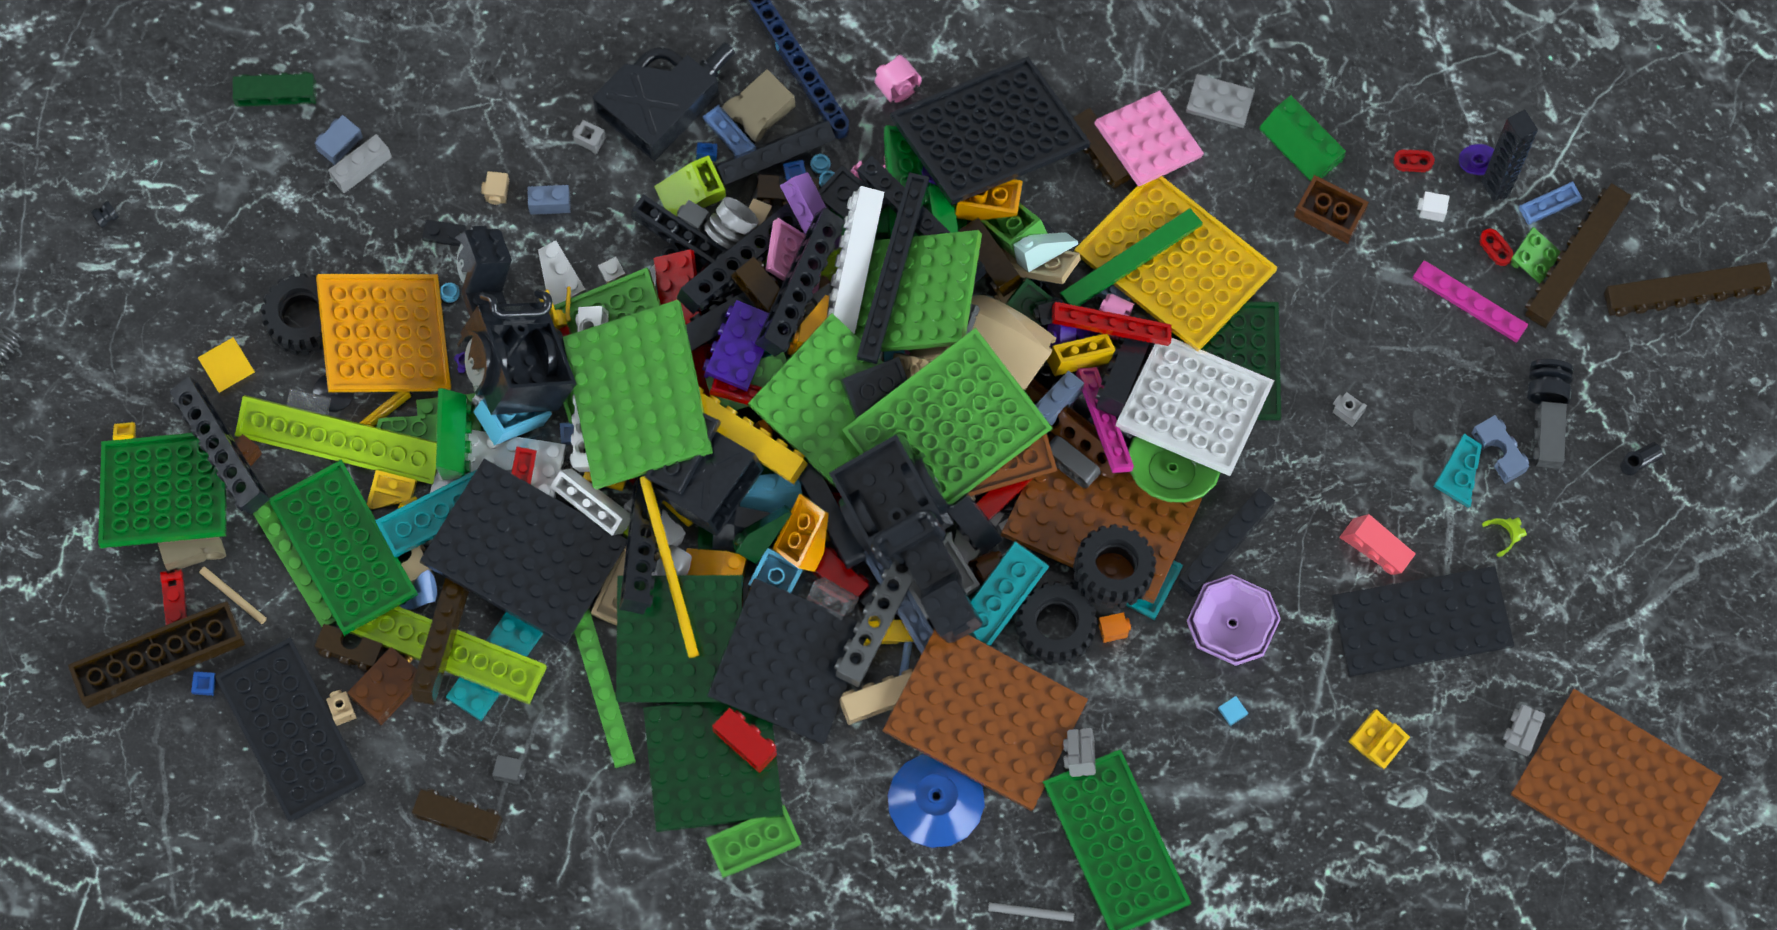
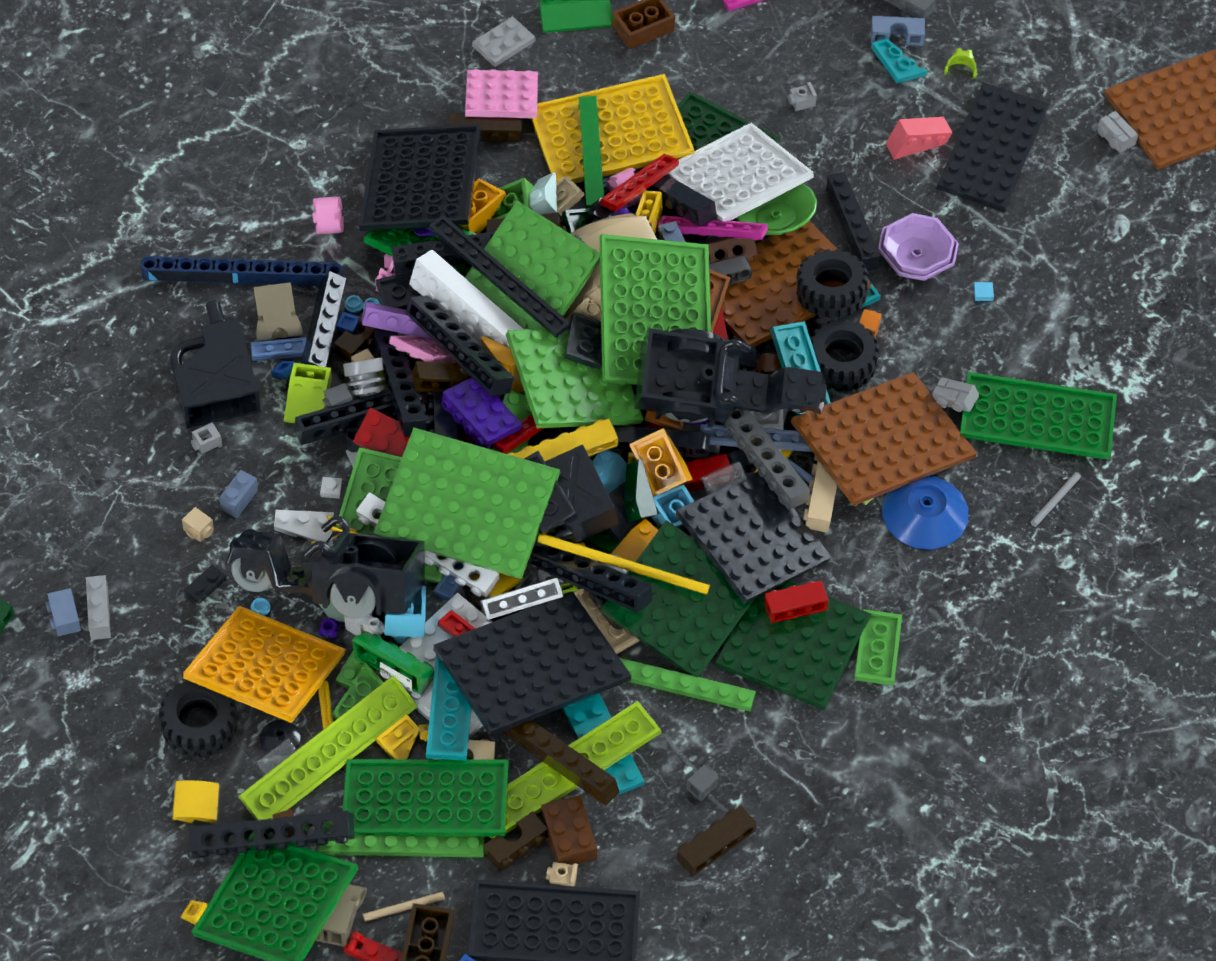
camera: 60 degrees left, 15 degrees down
(426, 589) = (511, 751): medium blue piece -> none
(1379, 739) = (1065, 218): yellow slope -> none

